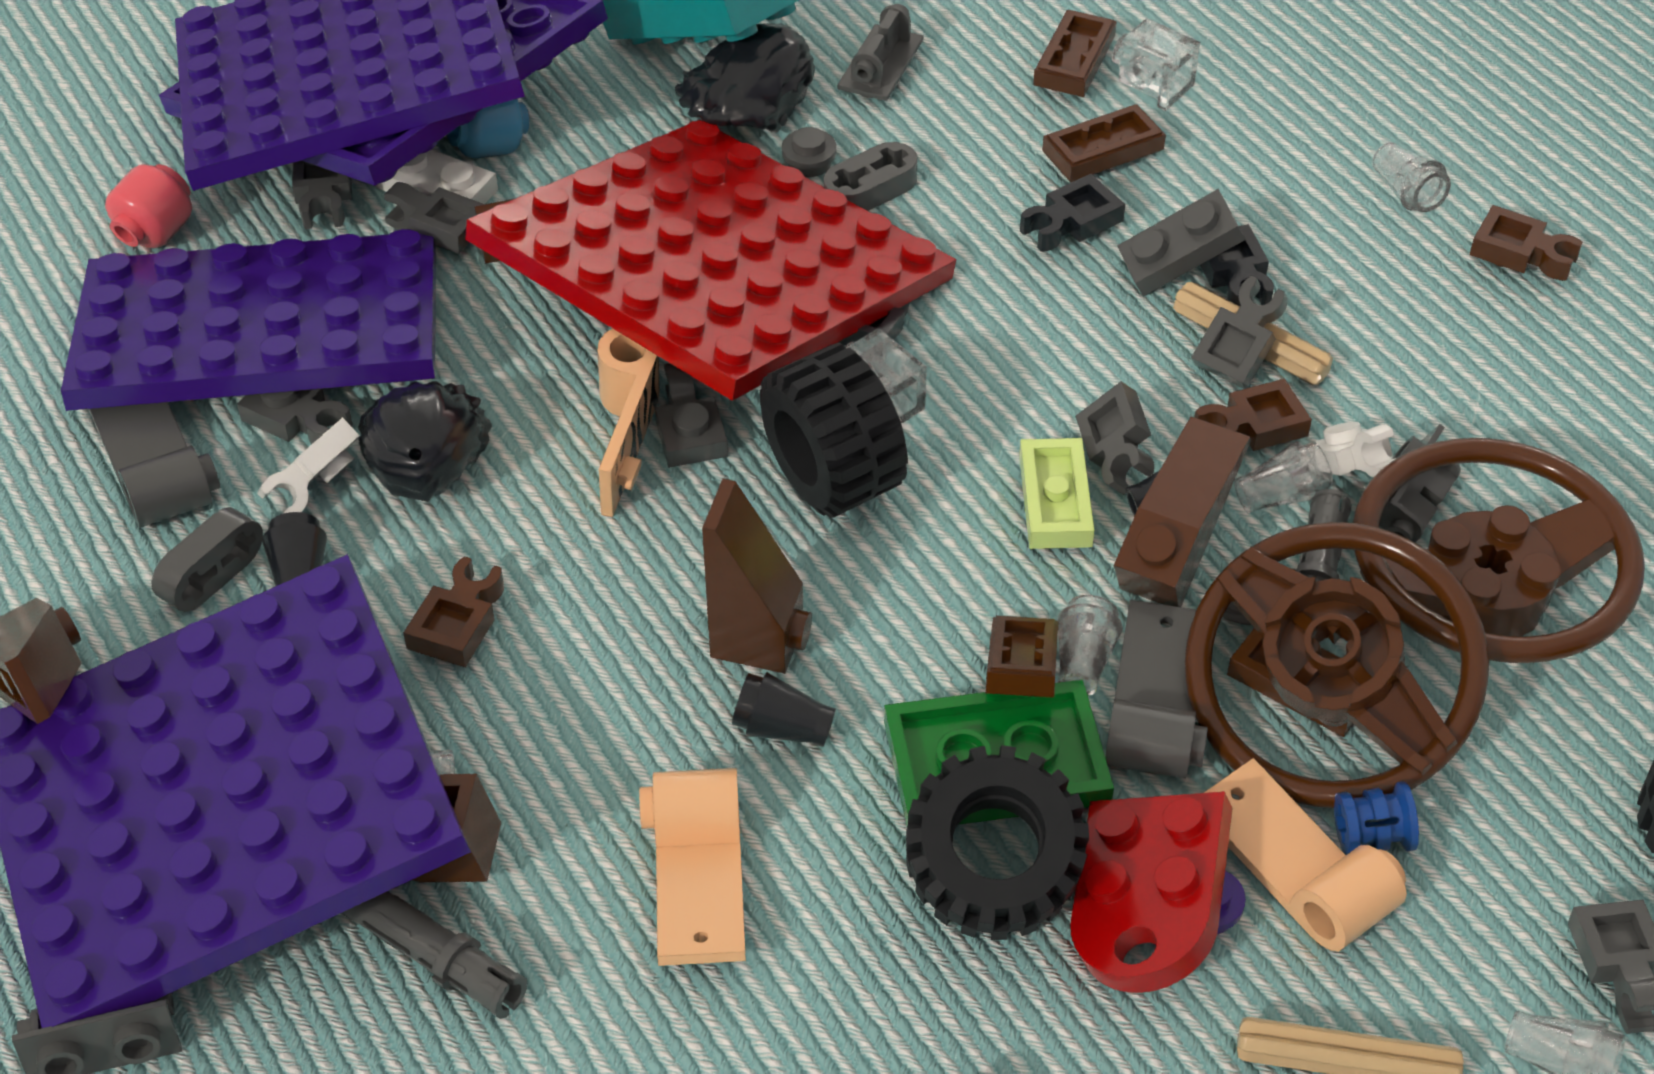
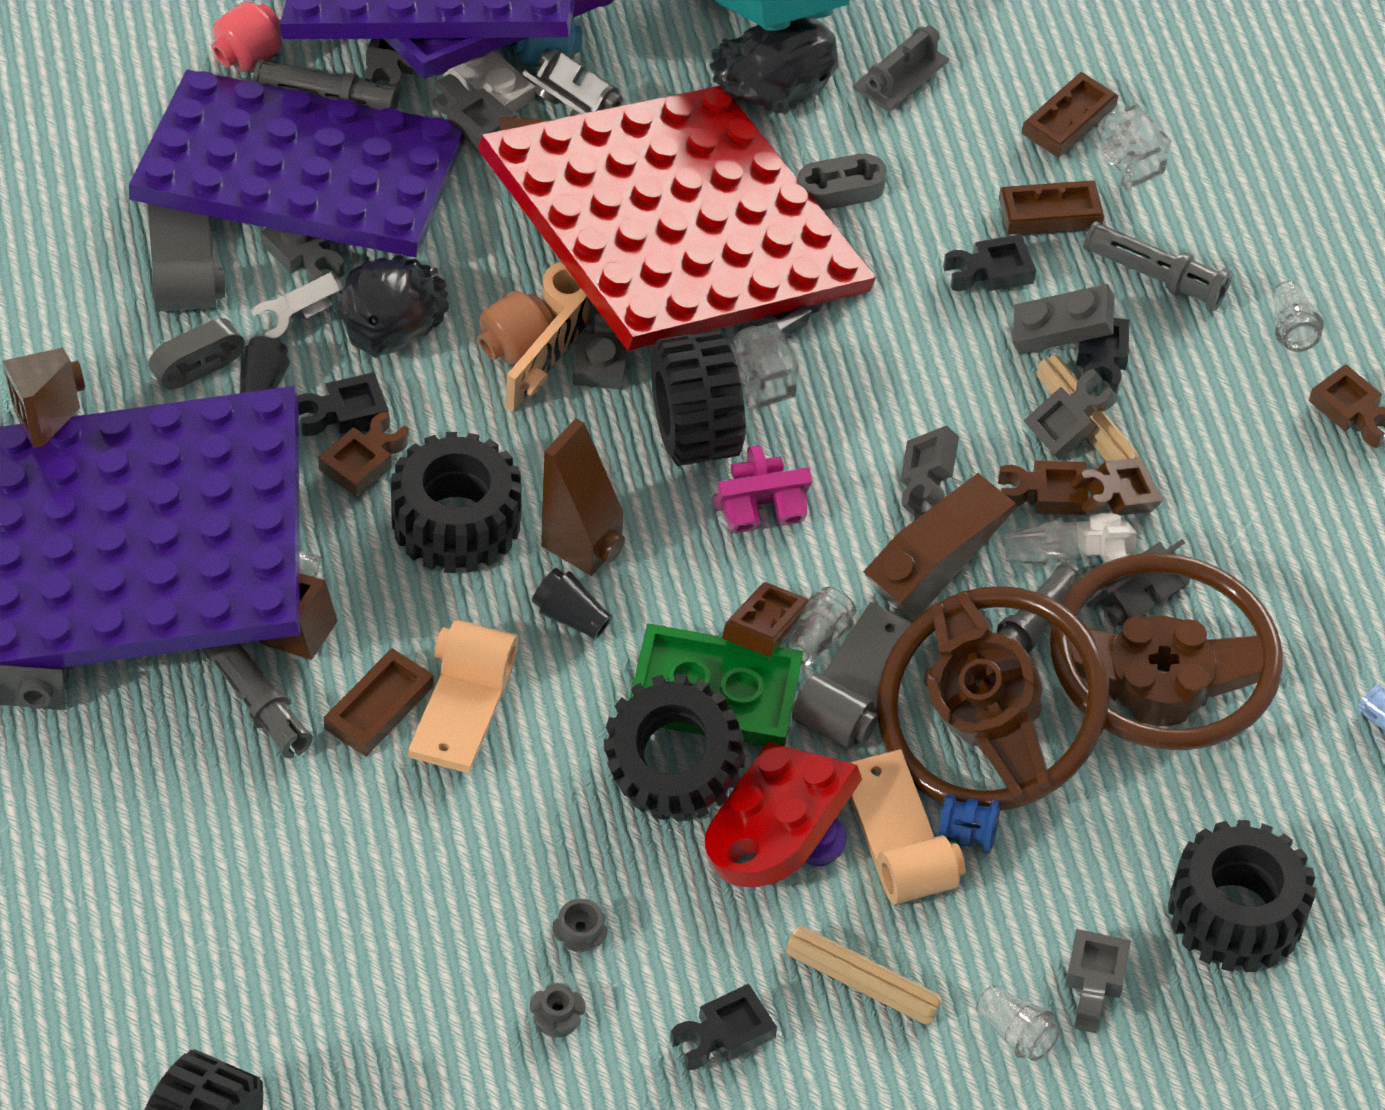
camera: 15 degrees right, 5 degrees up
(260, 231) = (327, 85): none -> dark grey pin
(411, 563) = (347, 403): none -> black plate
(521, 156) = (559, 79): none -> hinge
(579, 420) = (512, 326): none -> nougat head
(591, 908) = (378, 702): none -> reddish brown tile
(599, 673) = (448, 470): none -> black tyre
(809, 151) = (801, 141): dark grey plate -> none
(942, 508) = (756, 486): none -> dark pink hips
(1056, 493) = (858, 499): yellowish green plate -> none
(1270, 168) = (1182, 267): none -> dark grey pin
(1335, 394) = (1120, 484): none -> reddish brown plate

